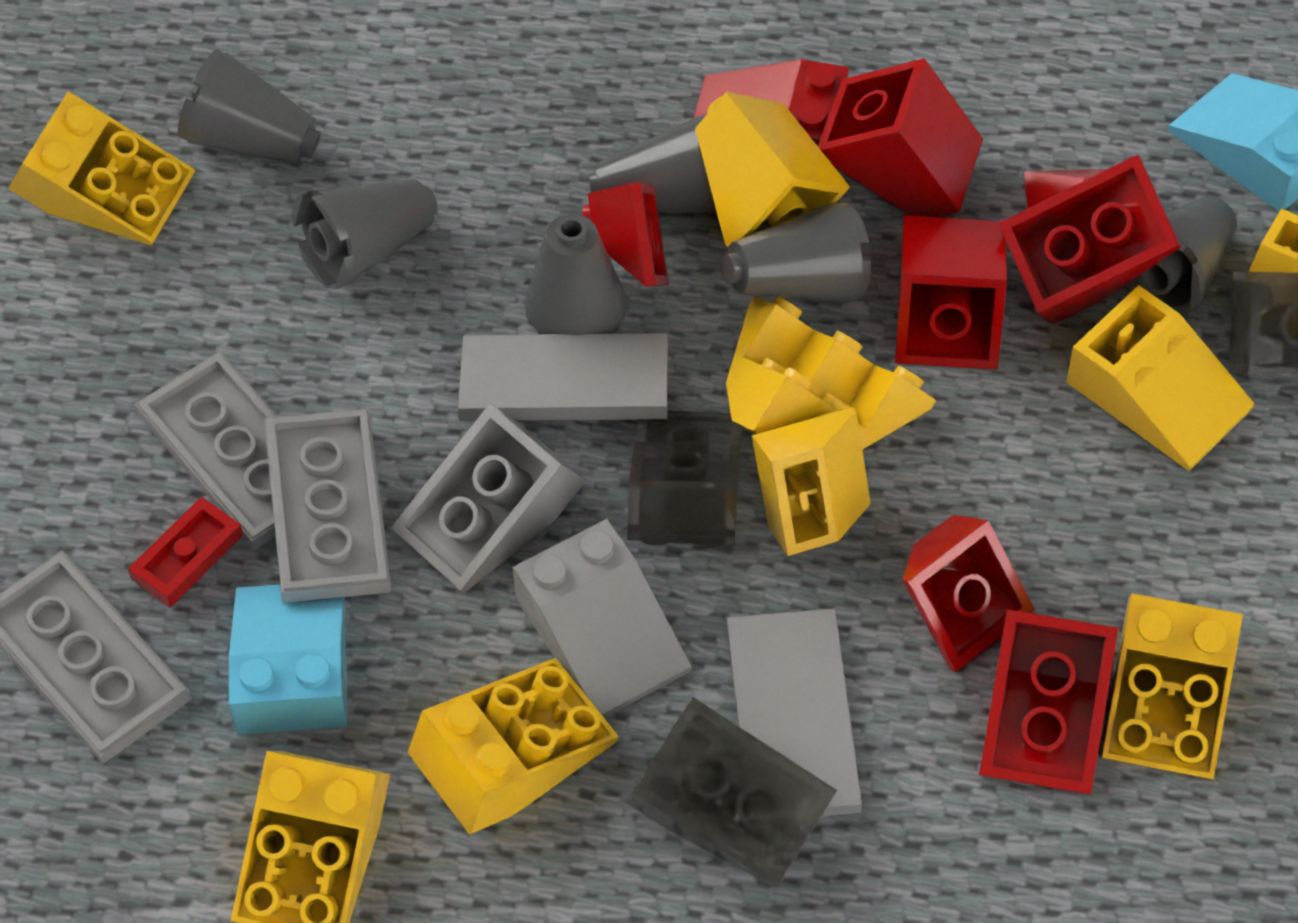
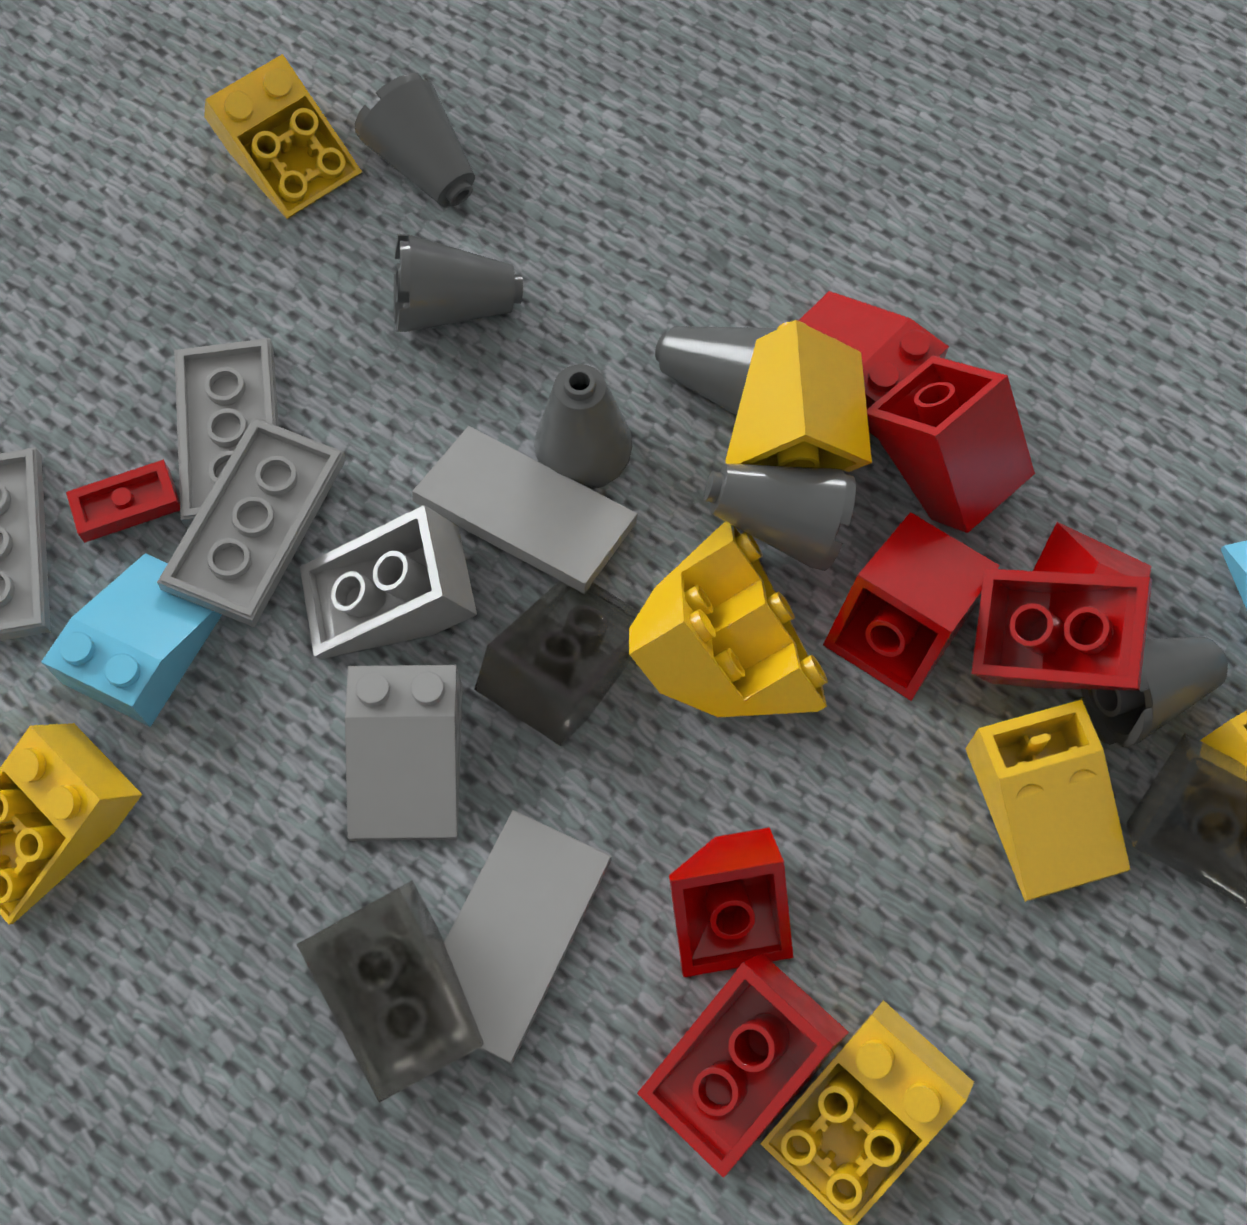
camera: 30 degrees right, 10 degrees up
(508, 743) = (256, 823): yellow slope -> none
(631, 230) = (655, 409): red slope -> none
(812, 479) = (661, 727): yellow slope -> none

